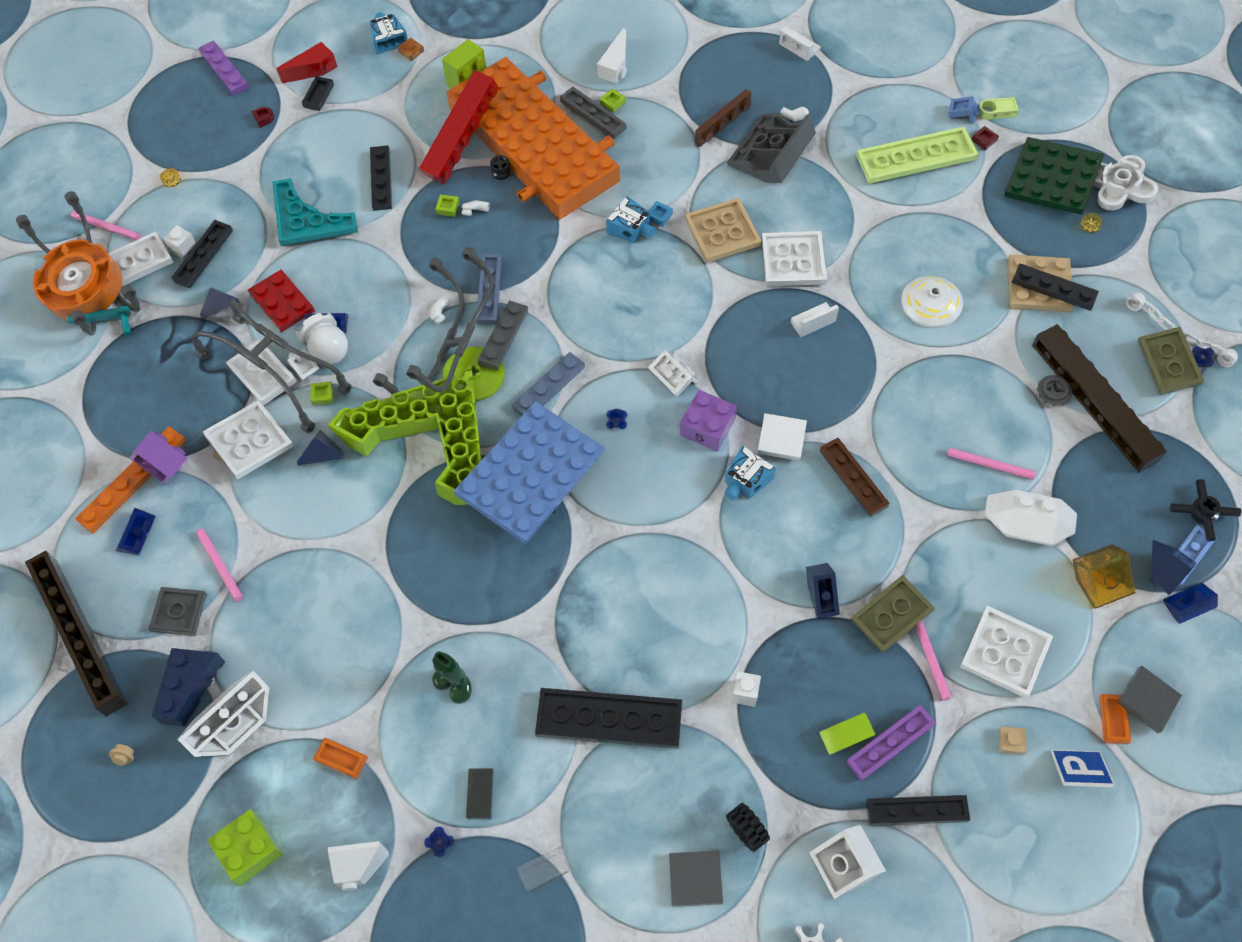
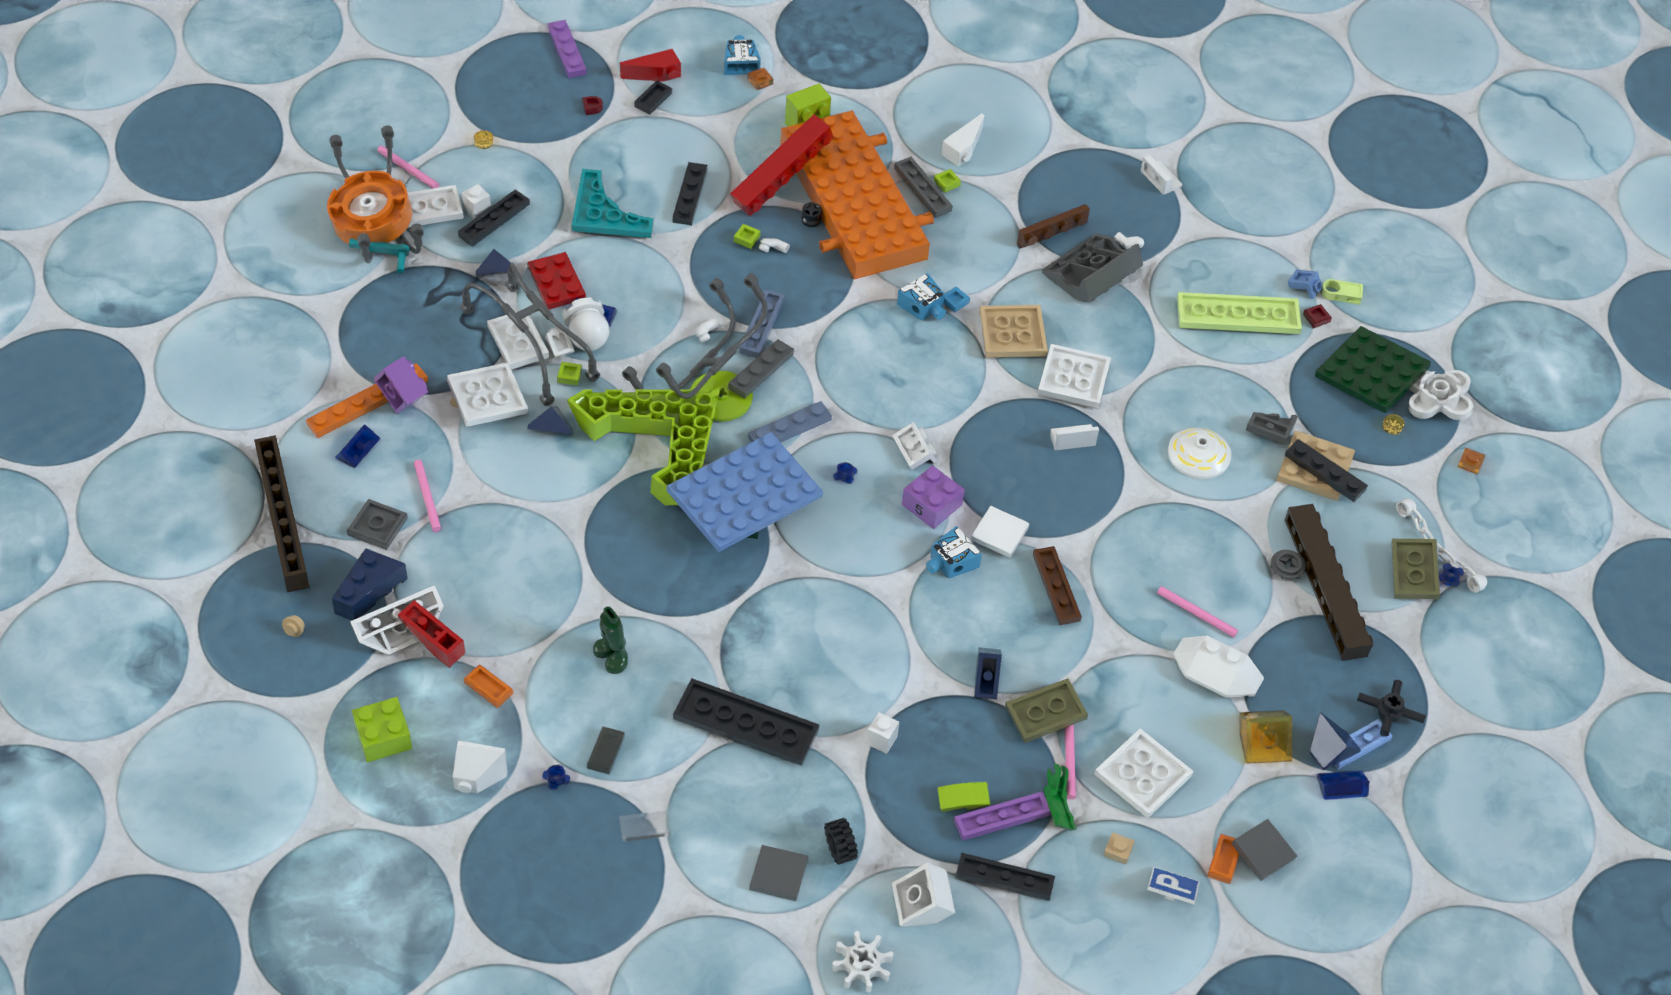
camera: 10 degrees right, 10 degrees down
(266, 722) = (433, 634): none -> red slope
(934, 705) = (1056, 797): none -> green arm
(988, 256) = (1271, 426): none -> dark grey wing
(1173, 238) = (1471, 460): none -> clear orange plate

